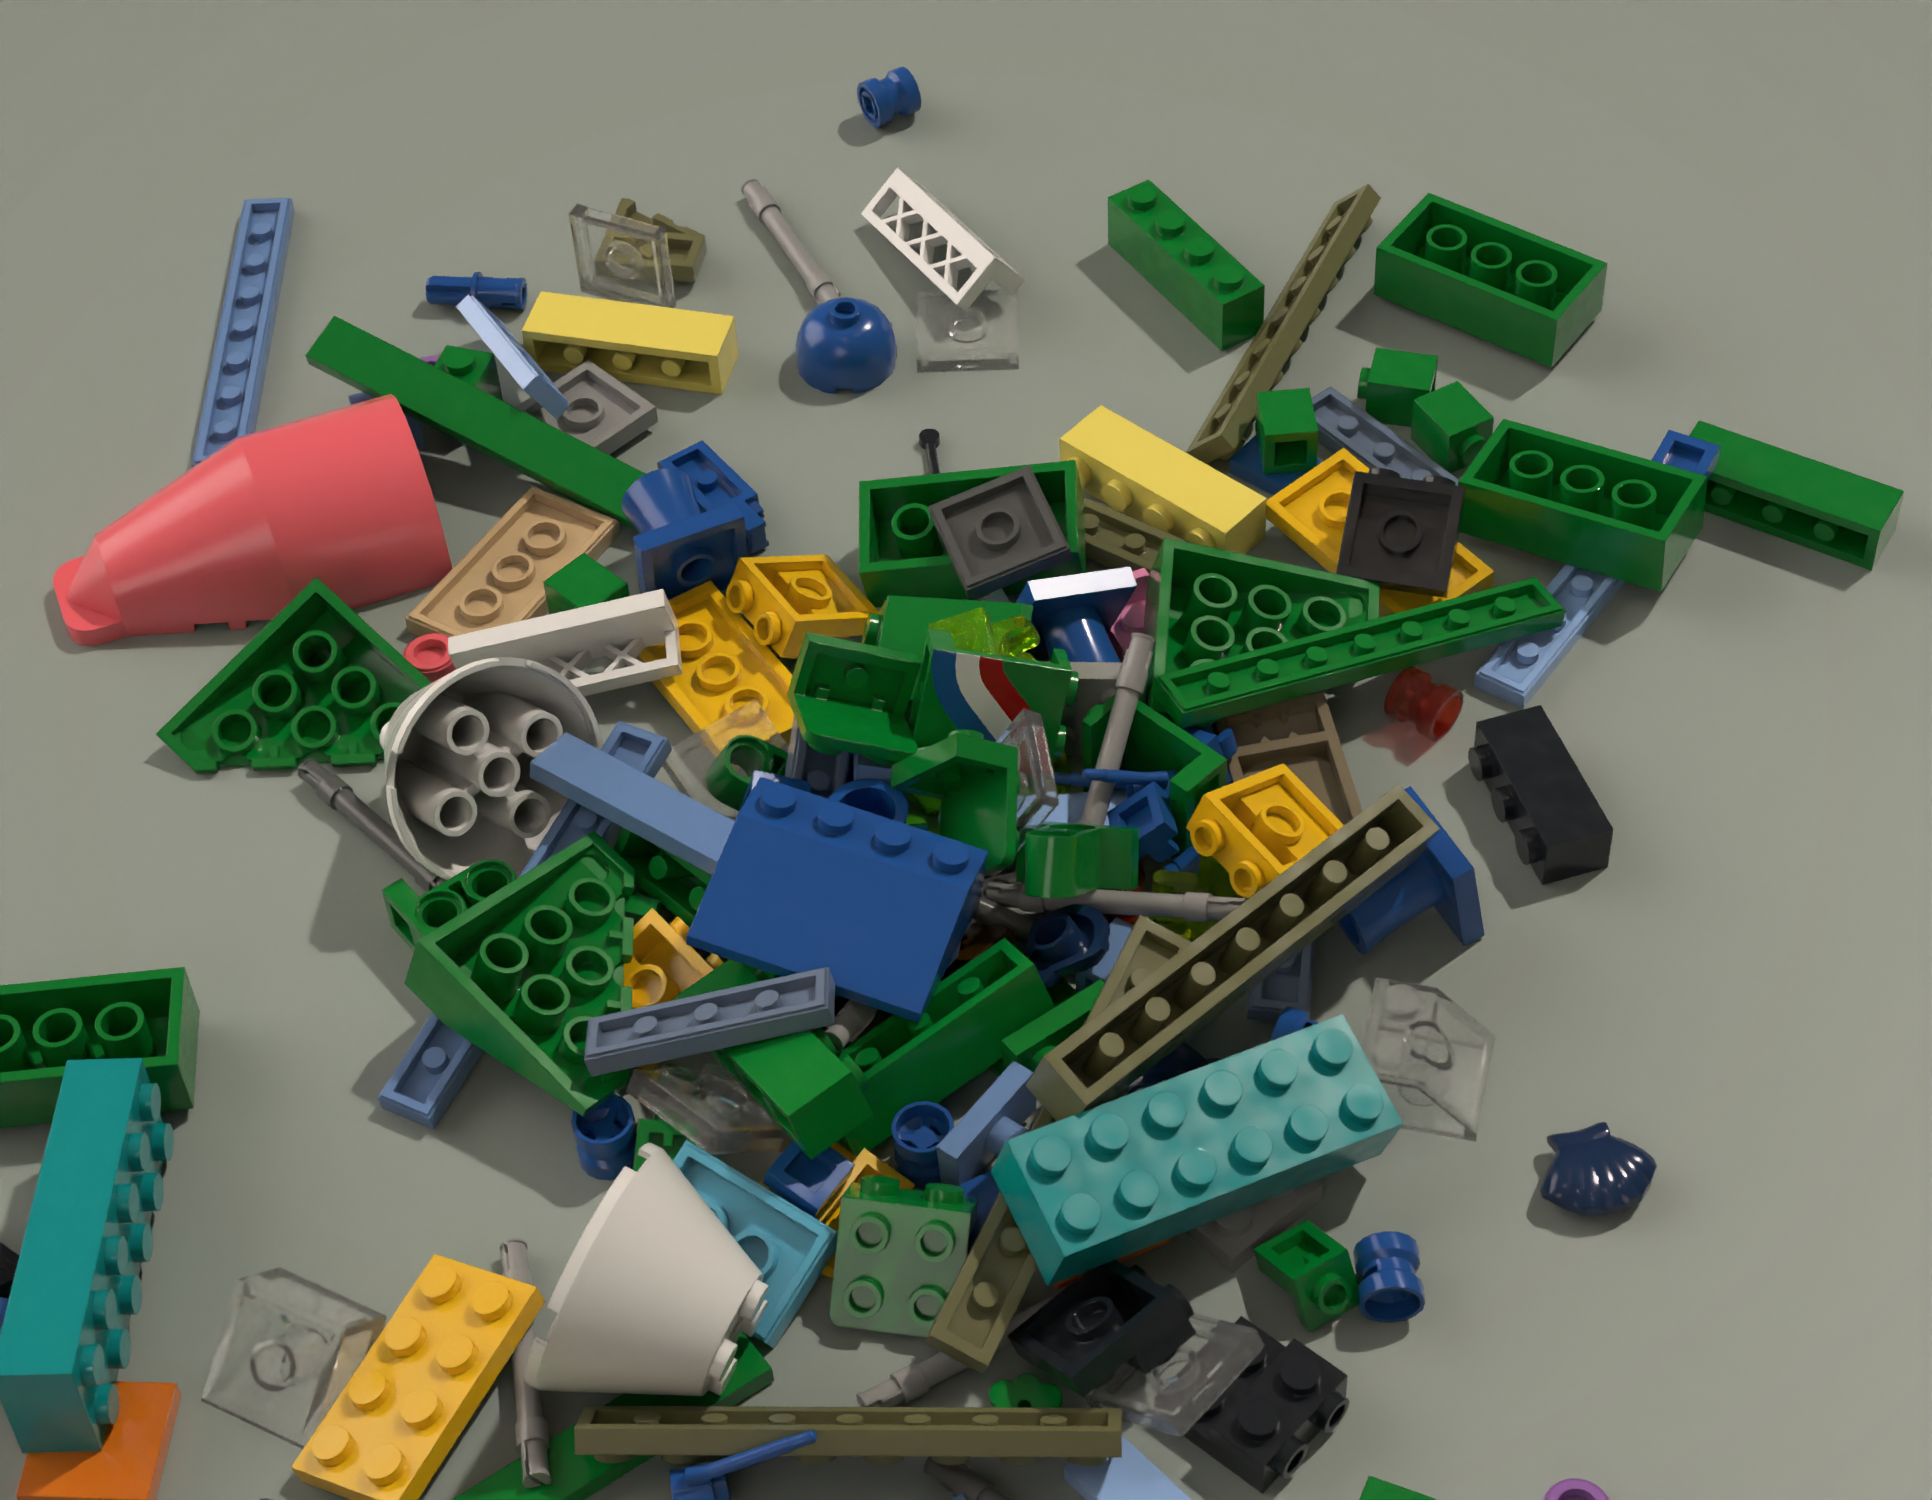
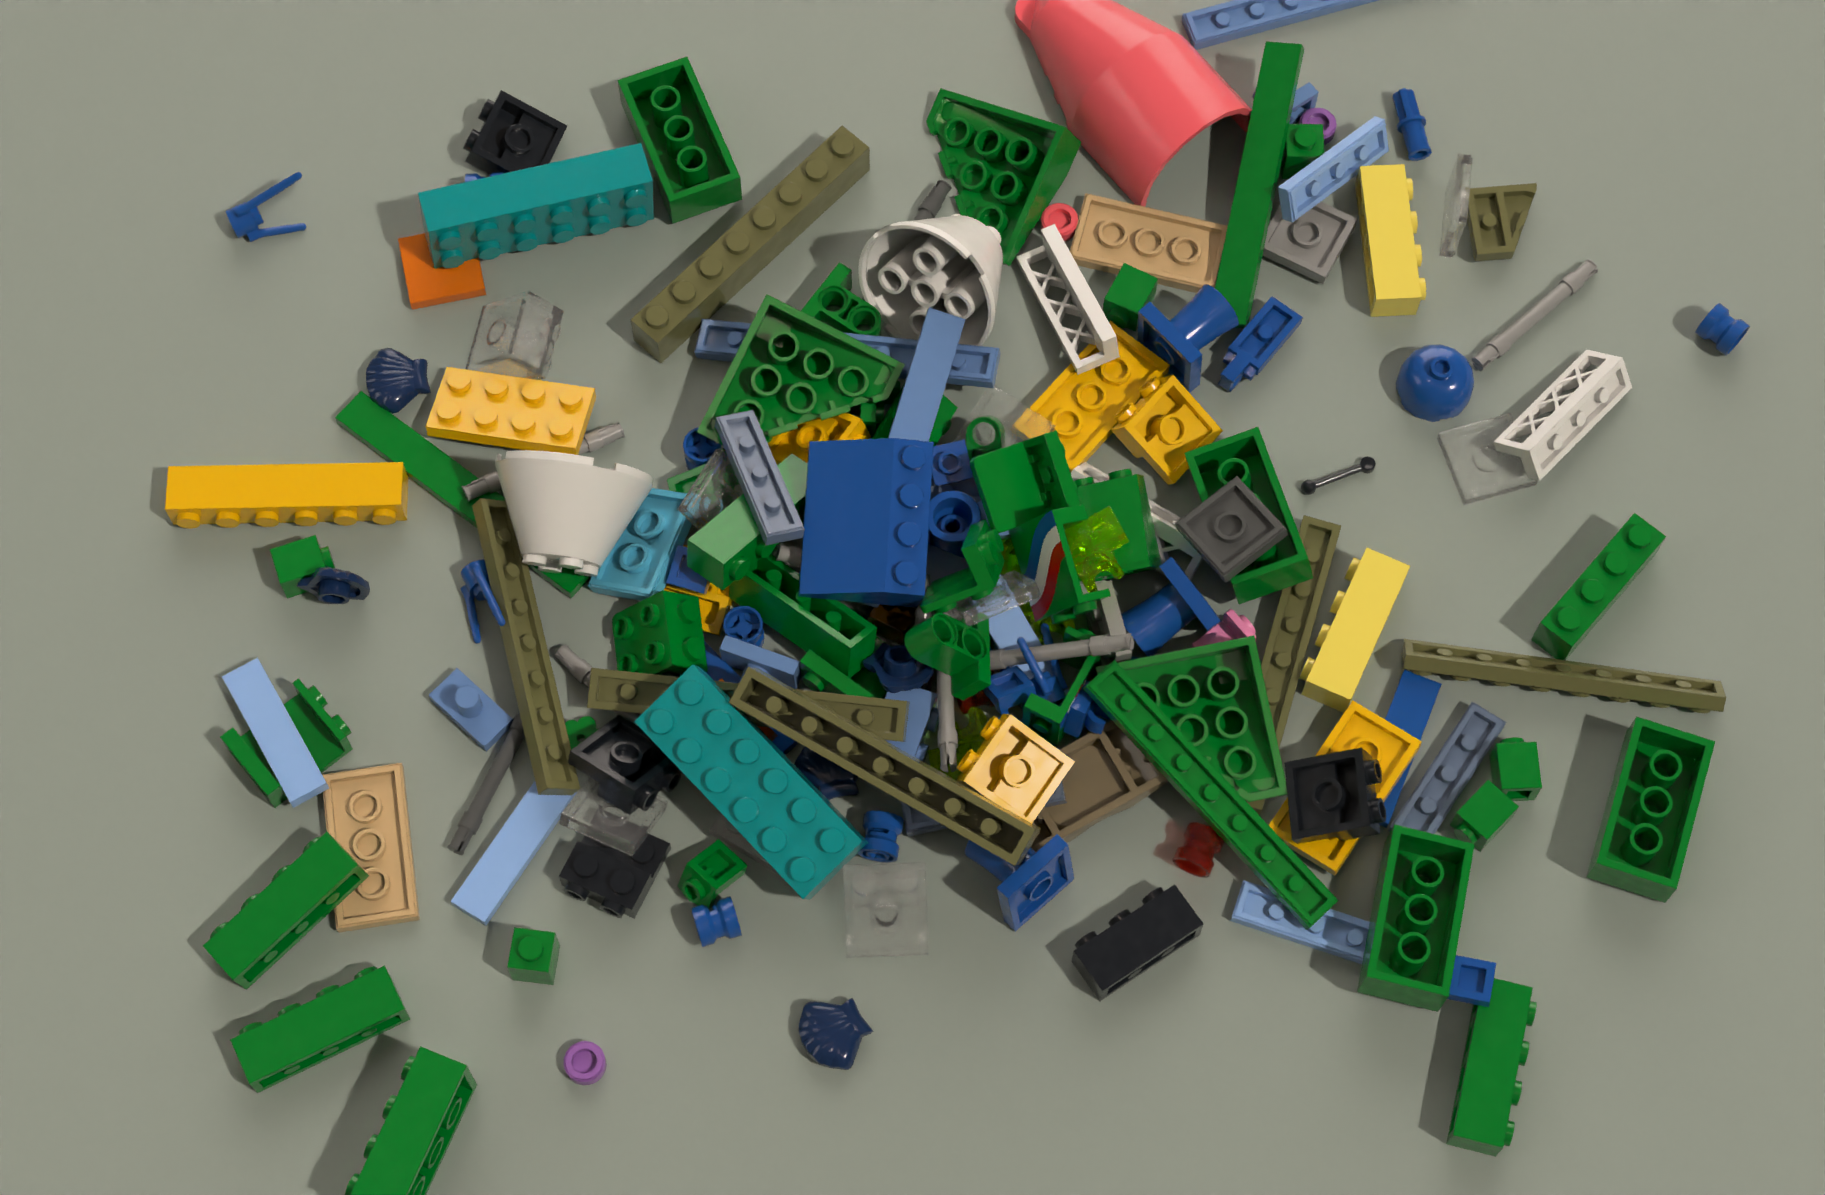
camera: 70 degrees right, 20 degrees up
(293, 1009) = (751, 244): none -> olive brick
(1286, 431) = (1429, 698): green brick -> none

